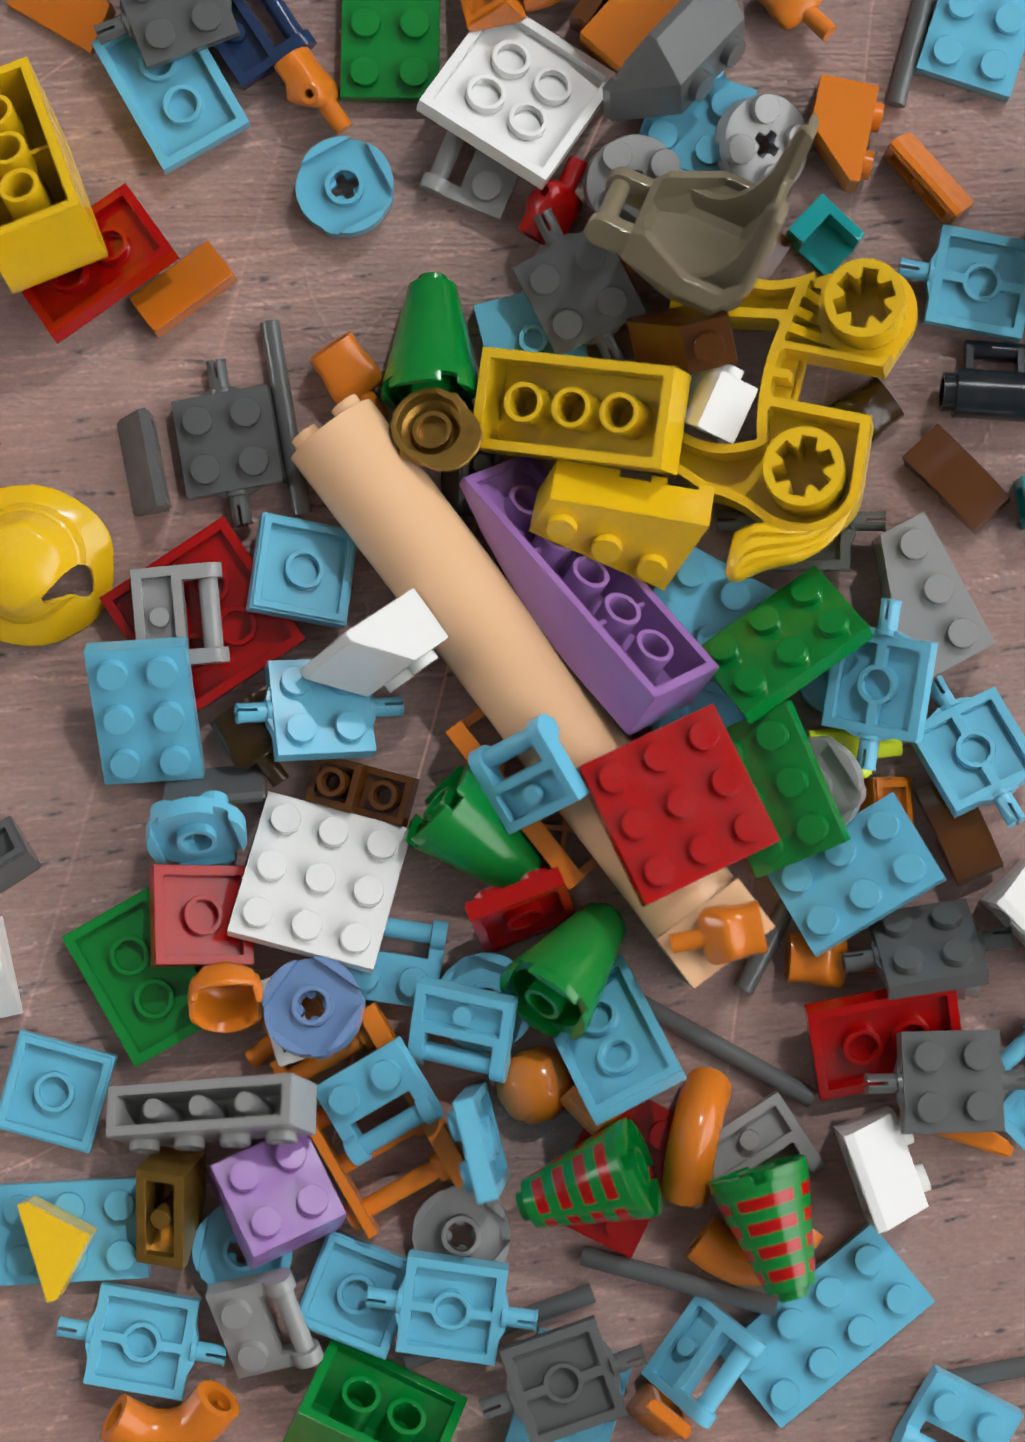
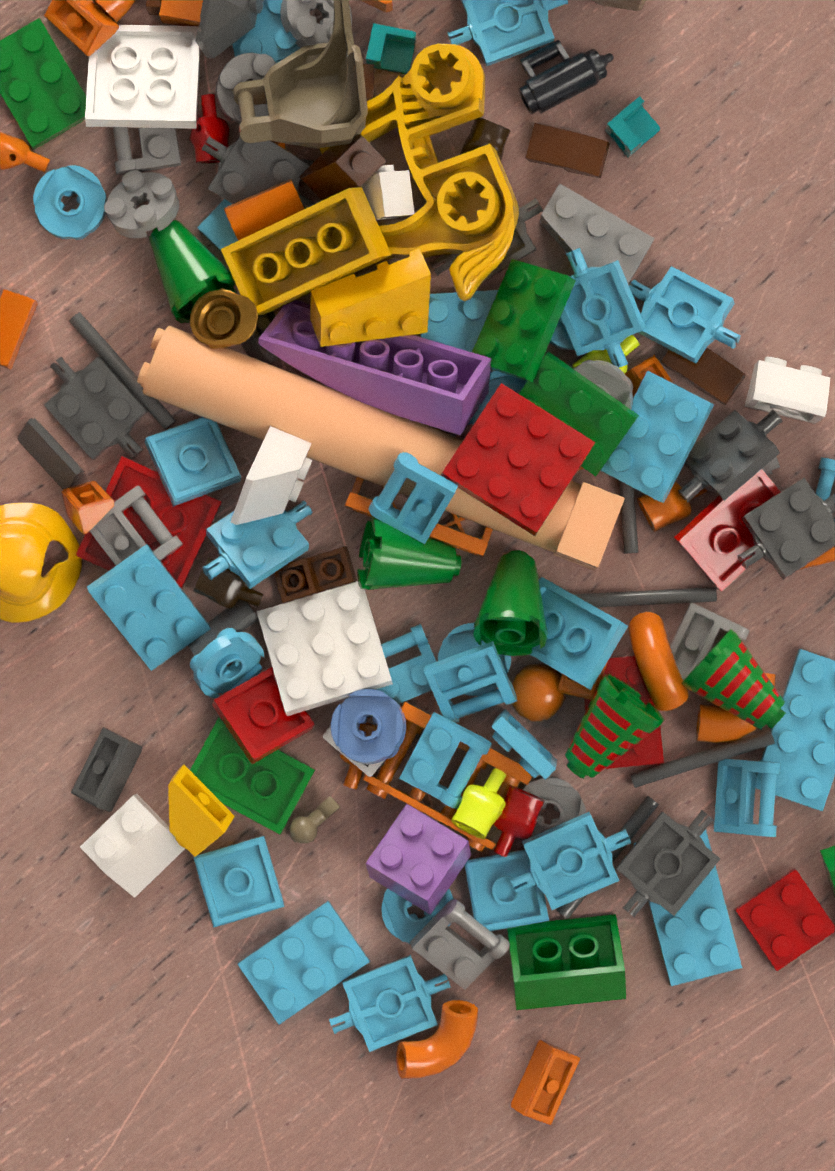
camera: 30 degrees left, 0 degrees up
(52, 981) = (195, 812): none -> yellow slope
(56, 1243) = (299, 972): yellow slope -> none
(147, 548) = (86, 504): none -> orange slope
(169, 1206) = (355, 907): pearl gold slope -> none
(171, 1070) = (305, 828): none -> dark tan arm
(212, 1111) = (345, 829): light grey brick -> none
(225, 998) = (310, 755): orange hair -> none
(348, 370) = (143, 316): orange piece -> none
(386, 1180) = (480, 806): none -> neon yellow piece
(420, 1217) = (517, 818): none -> red piece
(431, 219) = (139, 188): none -> light grey plate
(520, 910) = (460, 587): red plate -> none
(561, 331) = (263, 209): none -> orange slope
(659, 1413) = (740, 848): orange slope -> none
(724, 933) = (596, 520): orange piece -> none
(882, 1168) = (785, 609): white slope -> none

